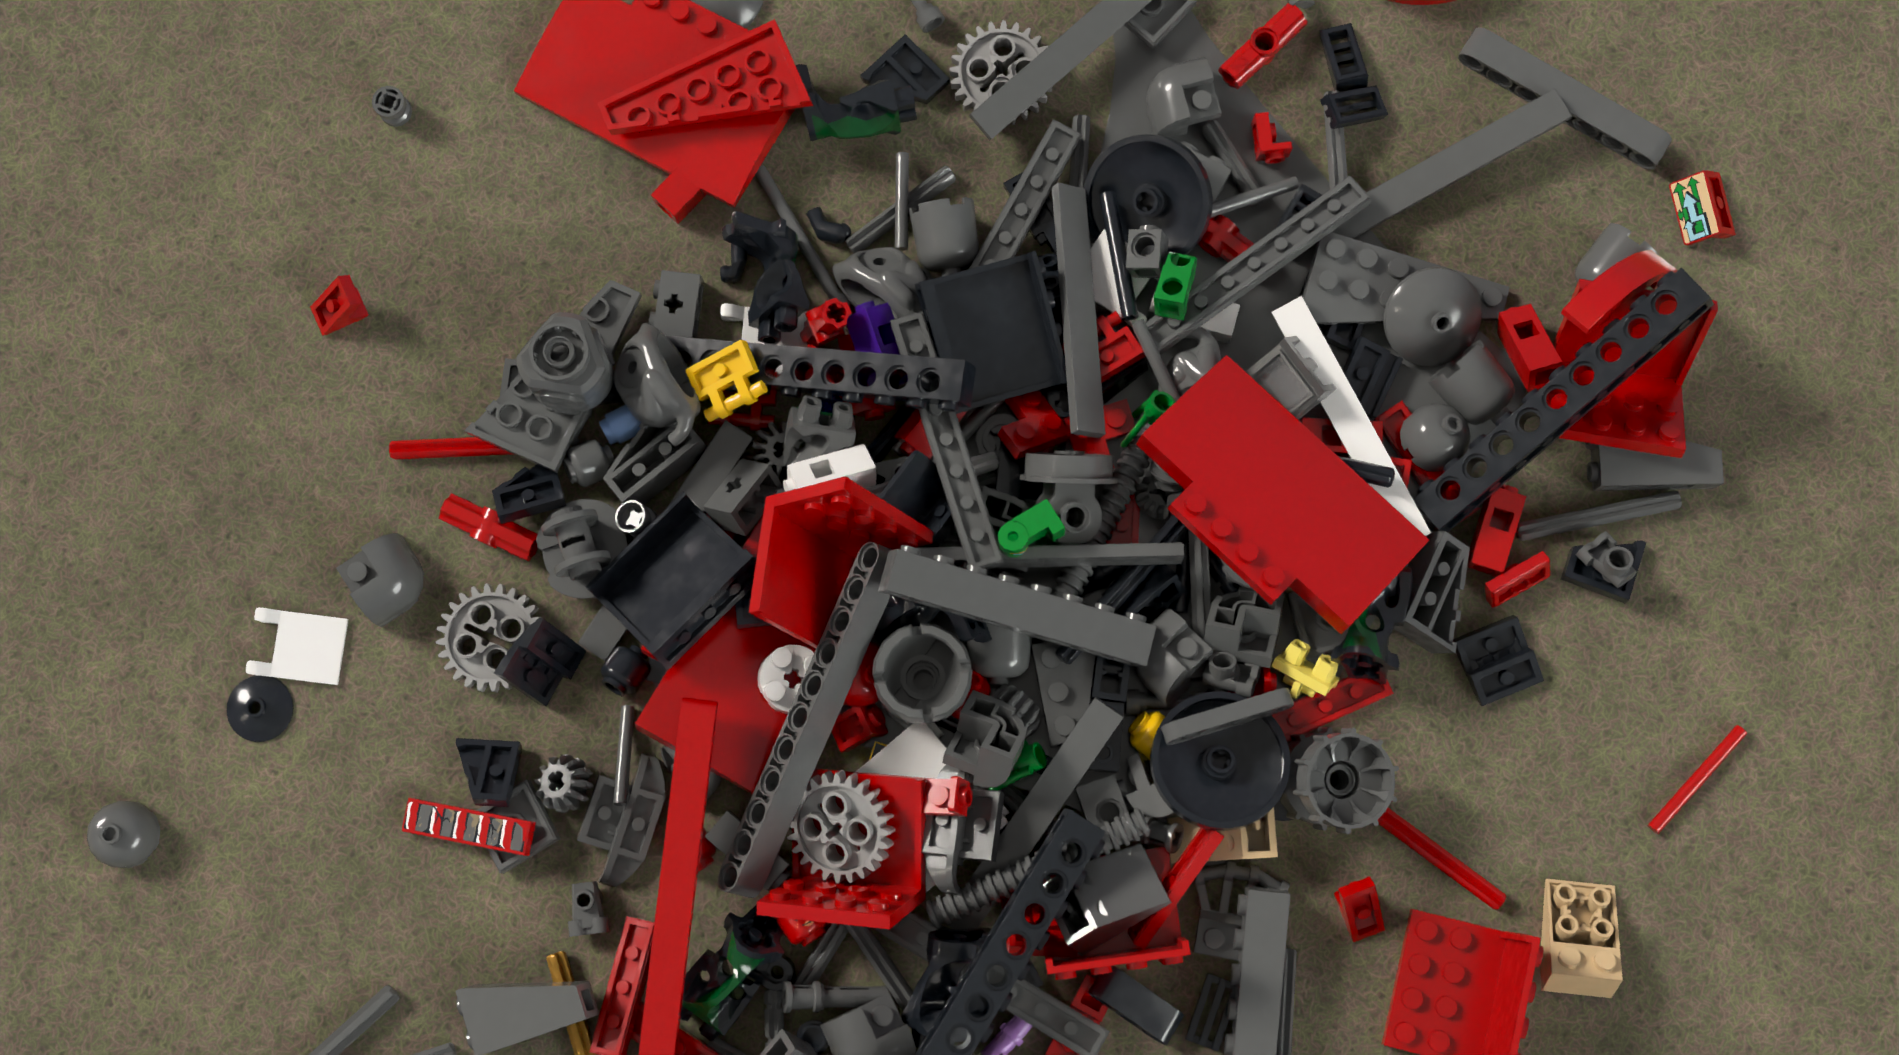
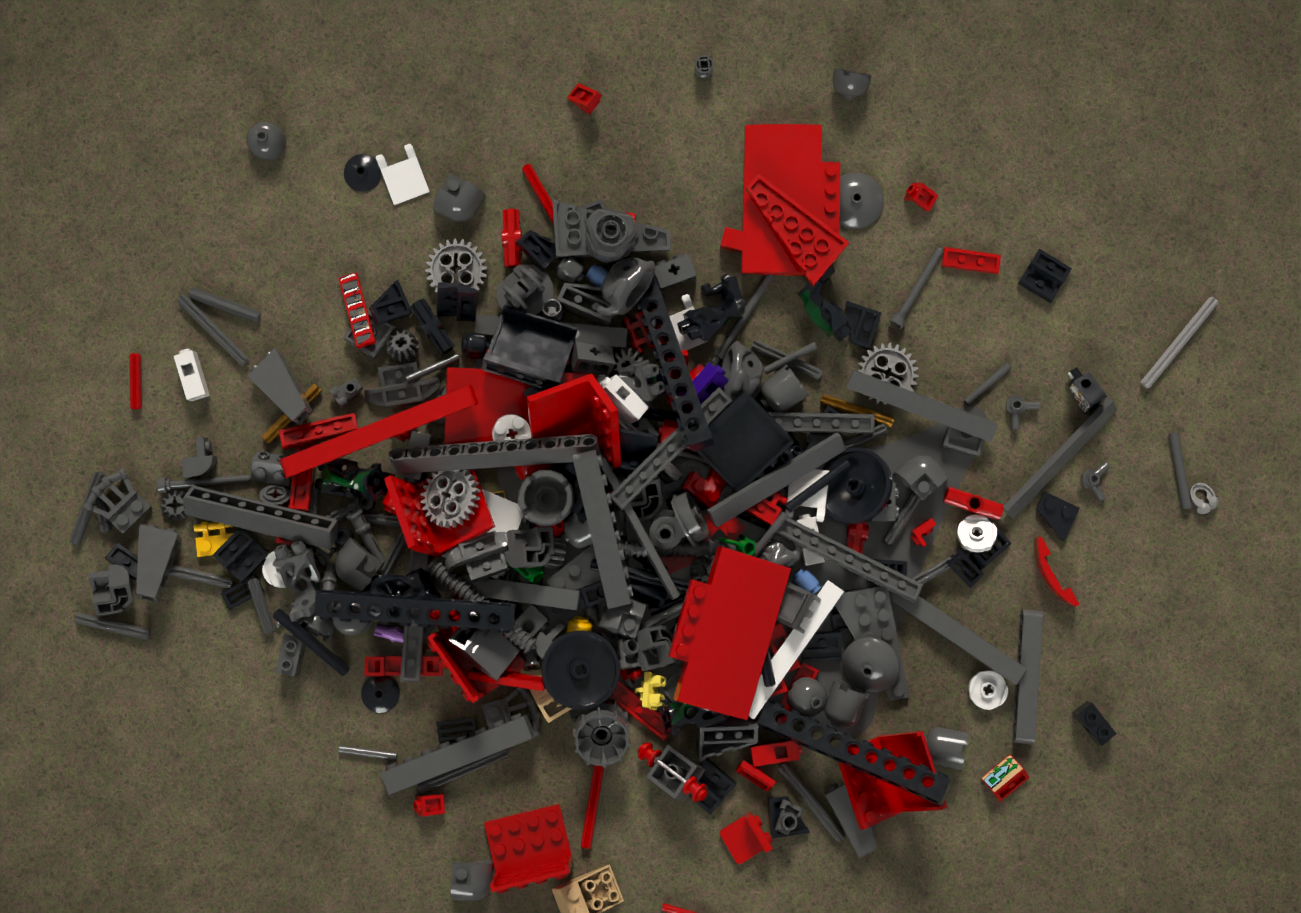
camera: 55 degrees right, 5 degrees up
(558, 721) = (432, 326): none -> black piece
(721, 371) = (647, 314): yellow plate -> none
(825, 322) = (702, 353): red piece -> none
(827, 231) = (755, 327): black arm -> none
(858, 726) = (507, 478): red bracket -> none
(947, 796) = (491, 542): bracket -> none
(1022, 155) = (851, 408): none -> pearl gold axle
(1028, 528) = (649, 515): green leg -> none
(1136, 1004) = (439, 690): black beam -> none
(1152, 264) = (822, 507): dark grey brick -> none
(1175, 286) = (814, 523): green leg -> none
(1227, 716) = (620, 679): dark grey beam -> none
(1253, 347) = (806, 581): none -> medium blue brick
(1254, 196) = (887, 539): dark grey piece -> none
(1320, 76) = (984, 527): none -> white plate
(1360, 908) = (545, 778): red slope -> none
(1453, 699) = (674, 772): none -> dark grey brick
(1528, 345) = (880, 722): red brick -> none
(1554, 148) = (982, 680): none -> white plate
(1607, 642) = (746, 838): none -> red bracket
(1614, 287) = (929, 752): red slope -> none
(1683, 36) = (1094, 723): none -> black brick

